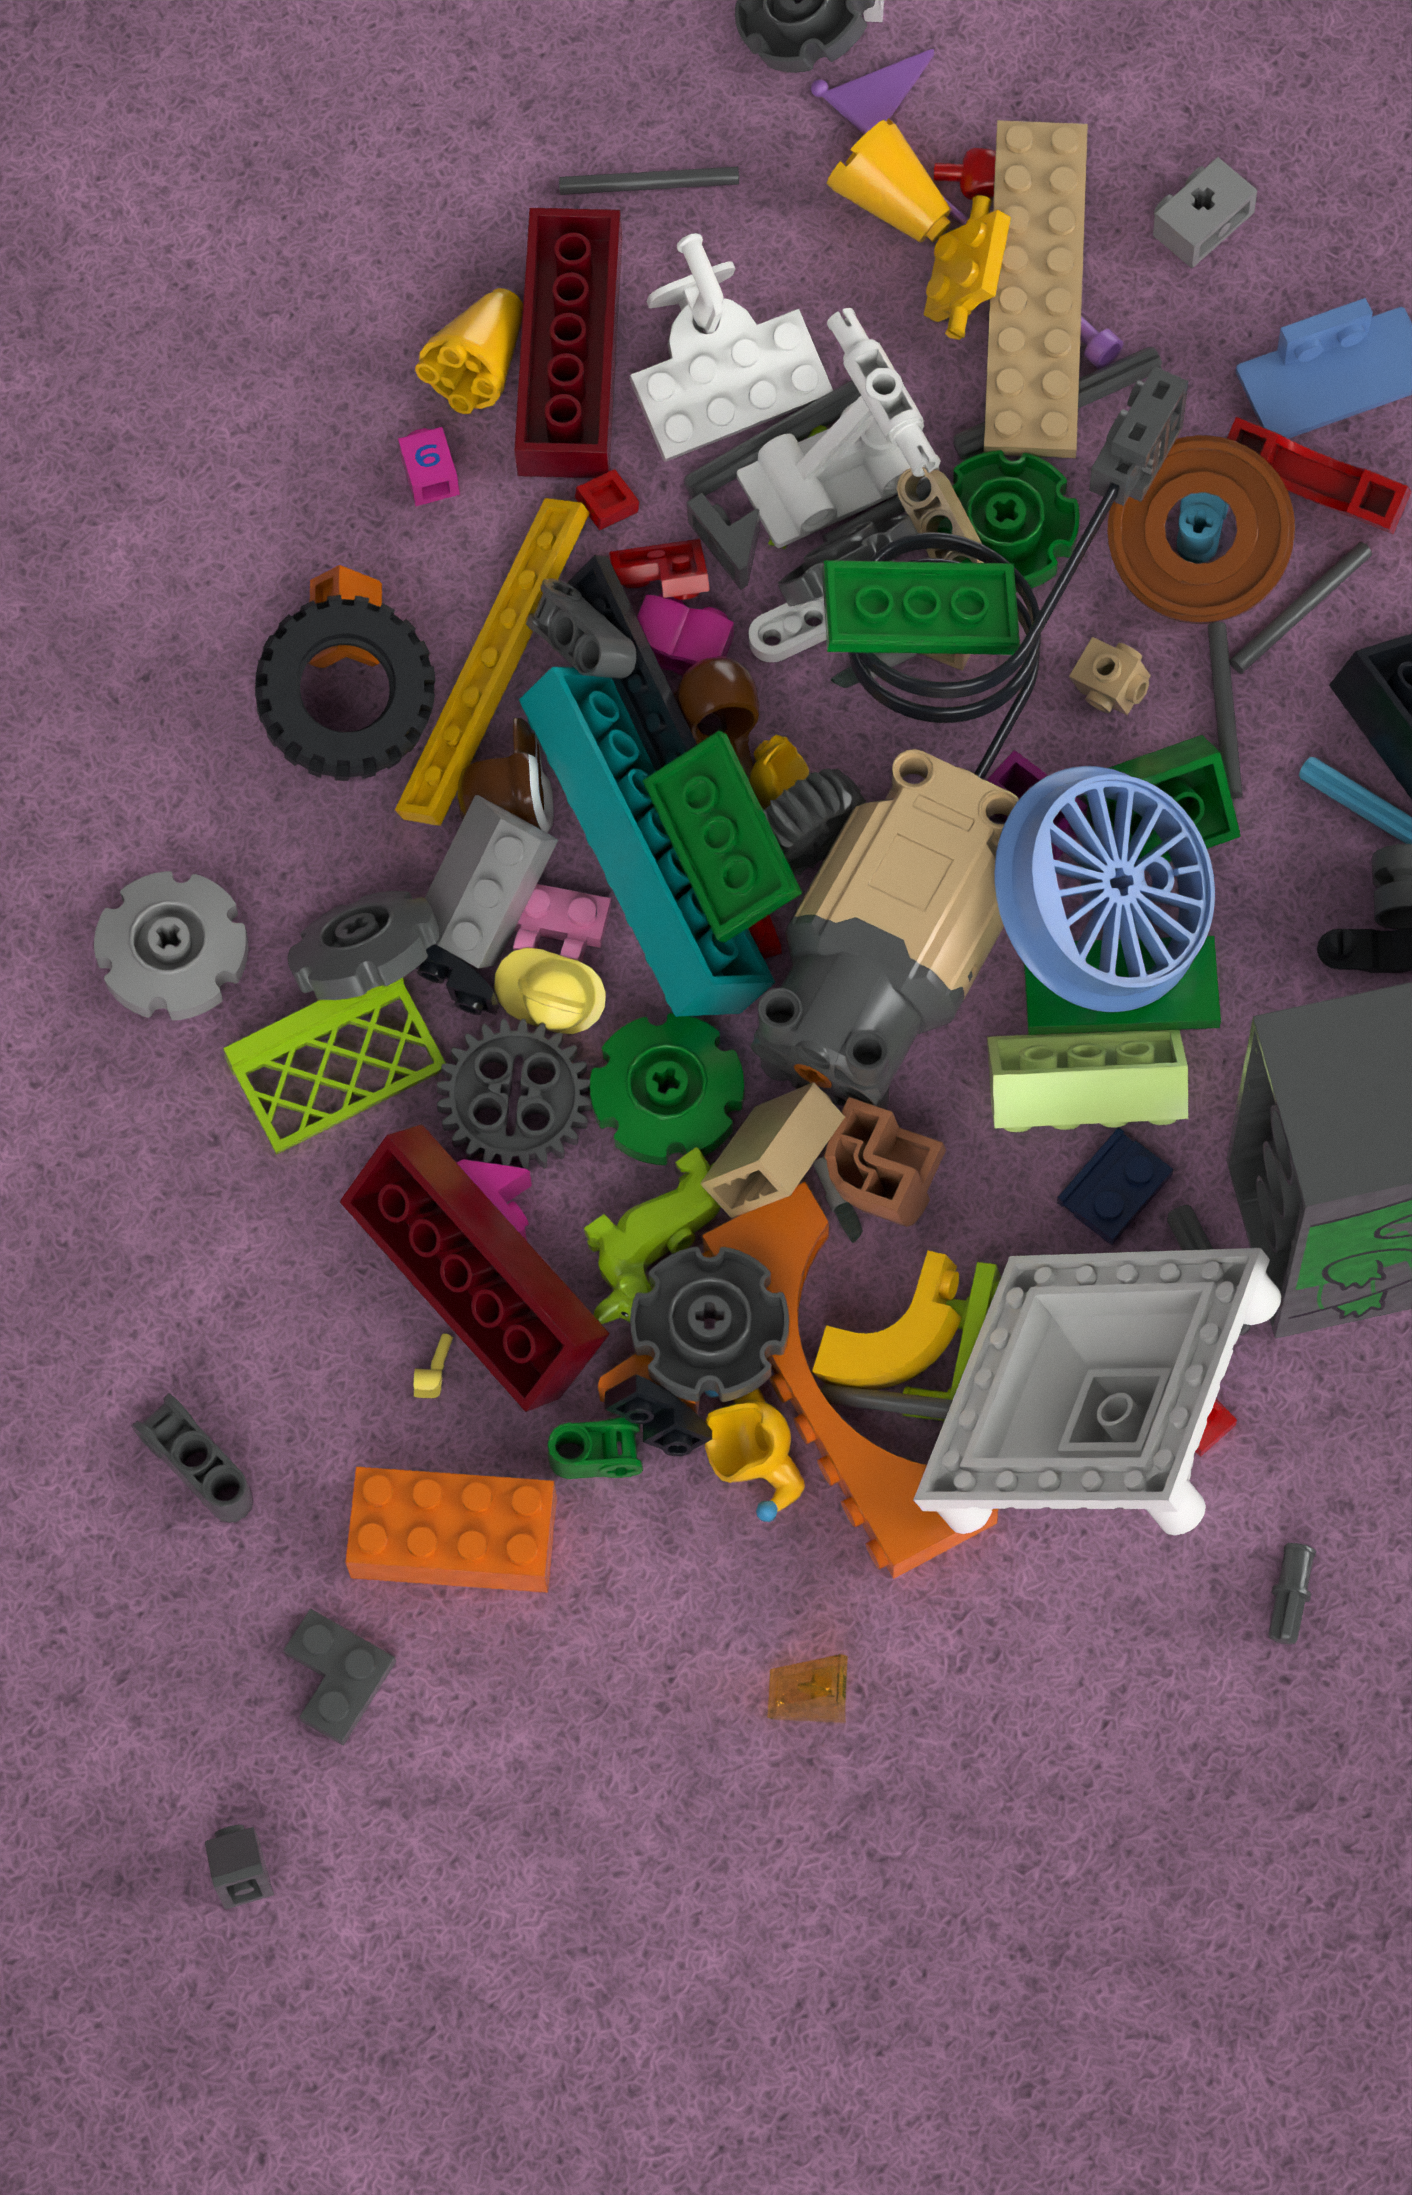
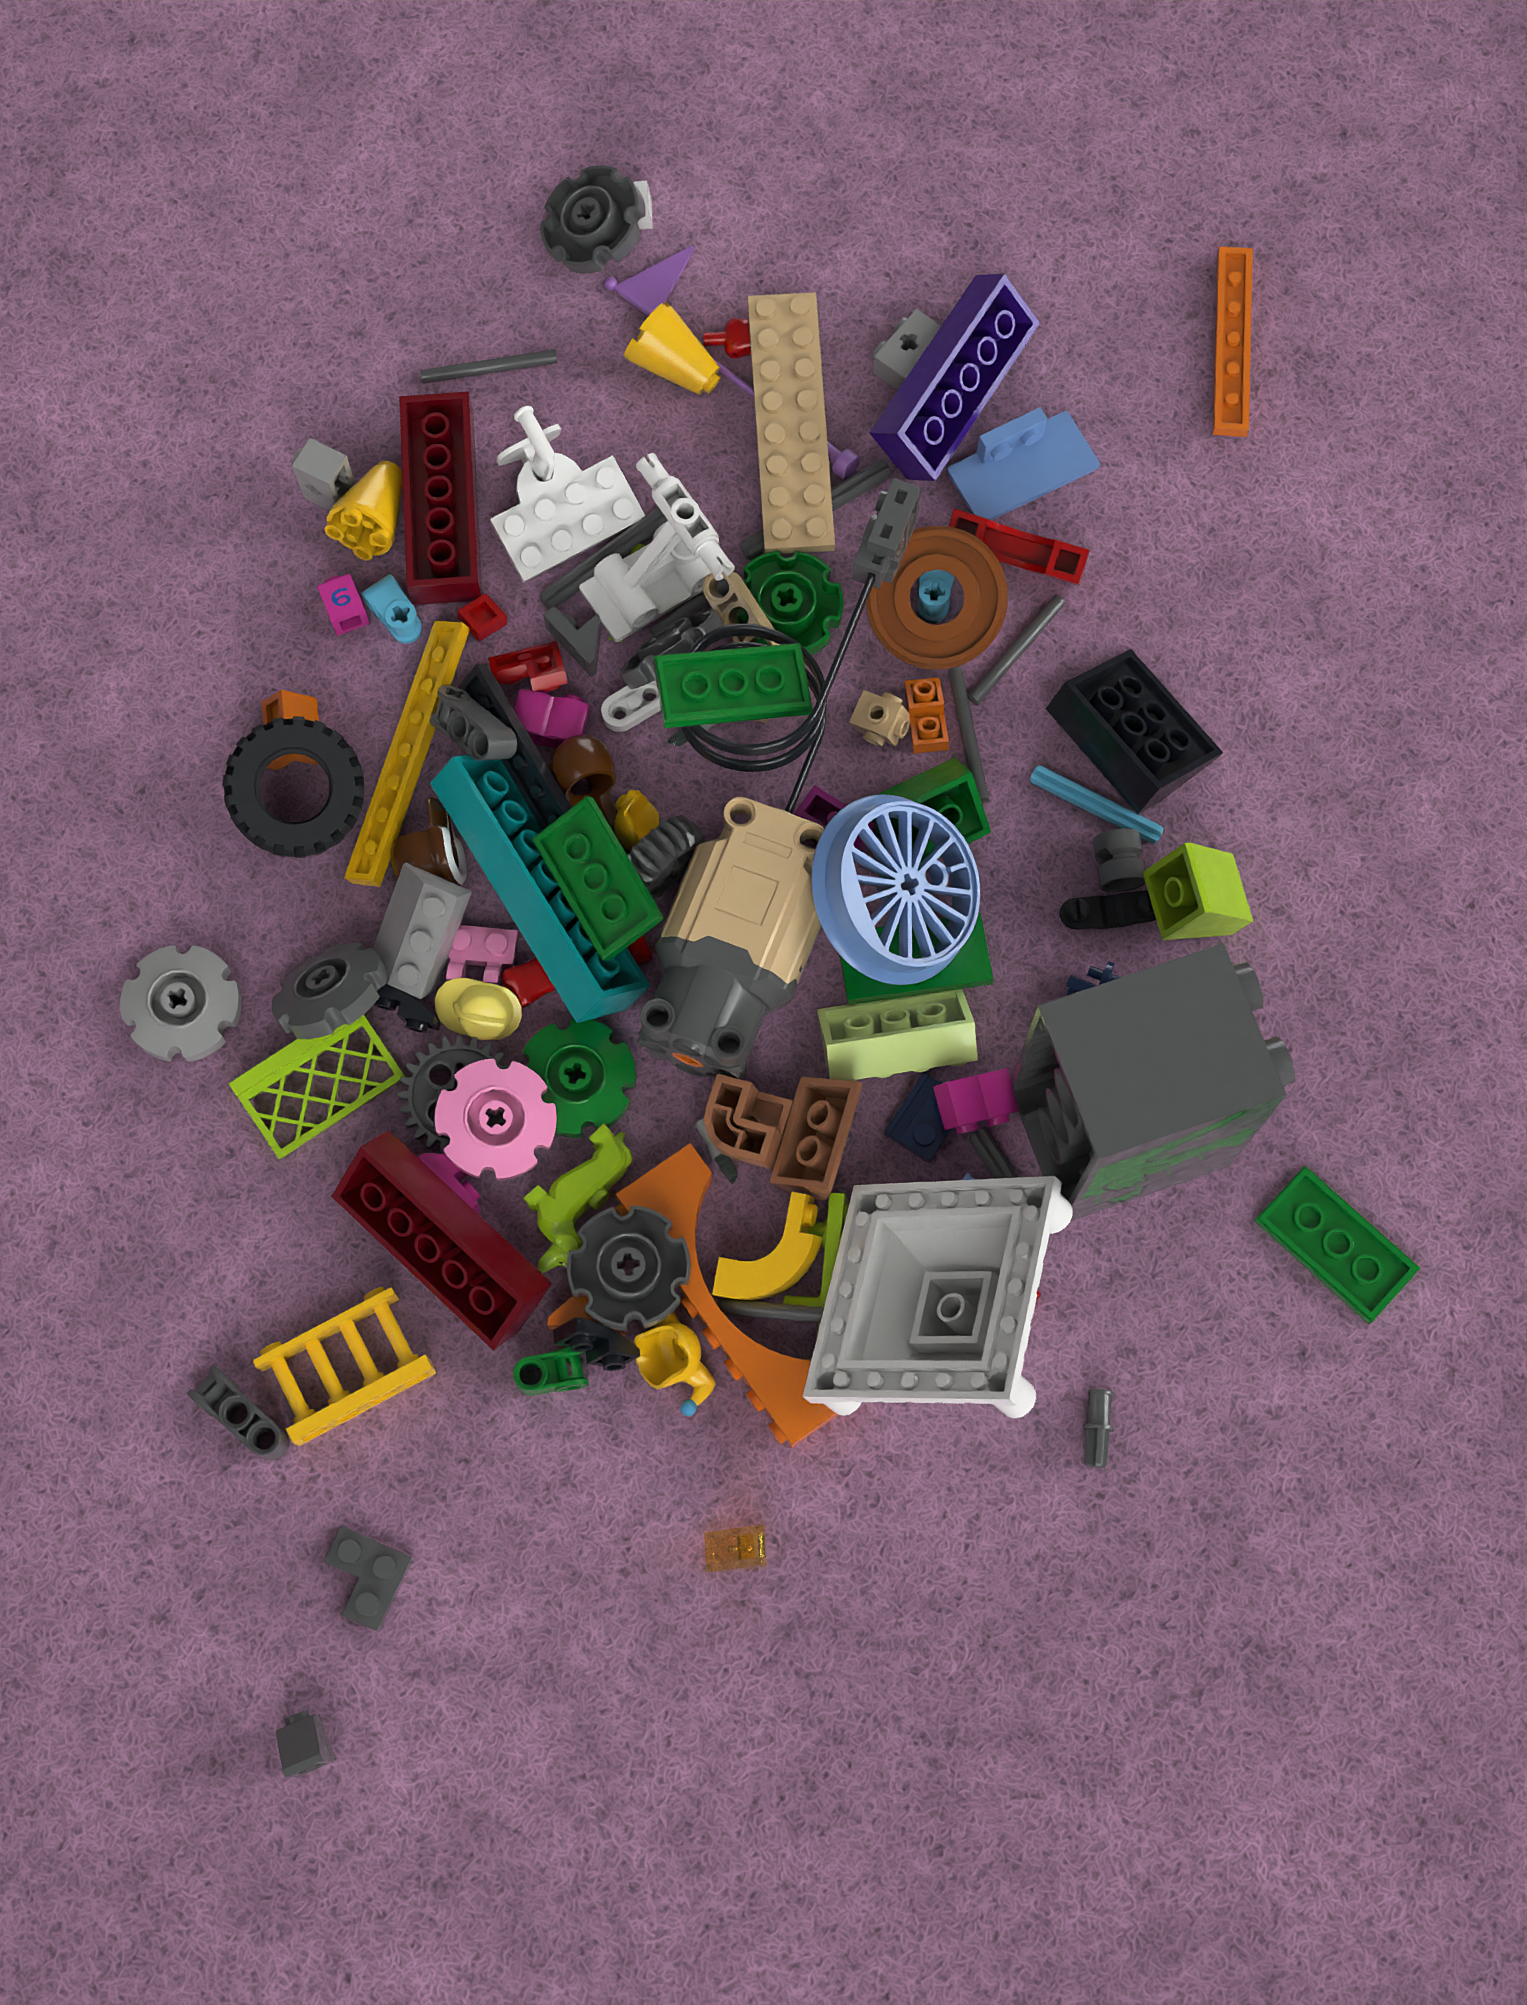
camera: 10 degrees left, 5 degrees up
(326, 1460) = (376, 1385): none -> yellow fence
(420, 297) = (322, 473): none -> light grey brick
(429, 1381) = (416, 1330): light yellow hand -> none
(451, 1529) = (444, 1450): orange brick -> none
(491, 475) = (392, 606): none -> medium azure piece
(556, 1089) = (505, 1148): none -> bright pink piece
(618, 963) = (527, 982): none -> red piece
(772, 1150) = (663, 1122): tan brick -> none
(966, 1188) = (815, 1136): none -> nougat slope
(967, 267) = (737, 411): yellow plate -> none
(1172, 679) = (927, 715): none -> orange slope
(1180, 1167) = (976, 1099): none -> dark pink brick
(1258, 250) = (955, 377): none -> dark purple brick

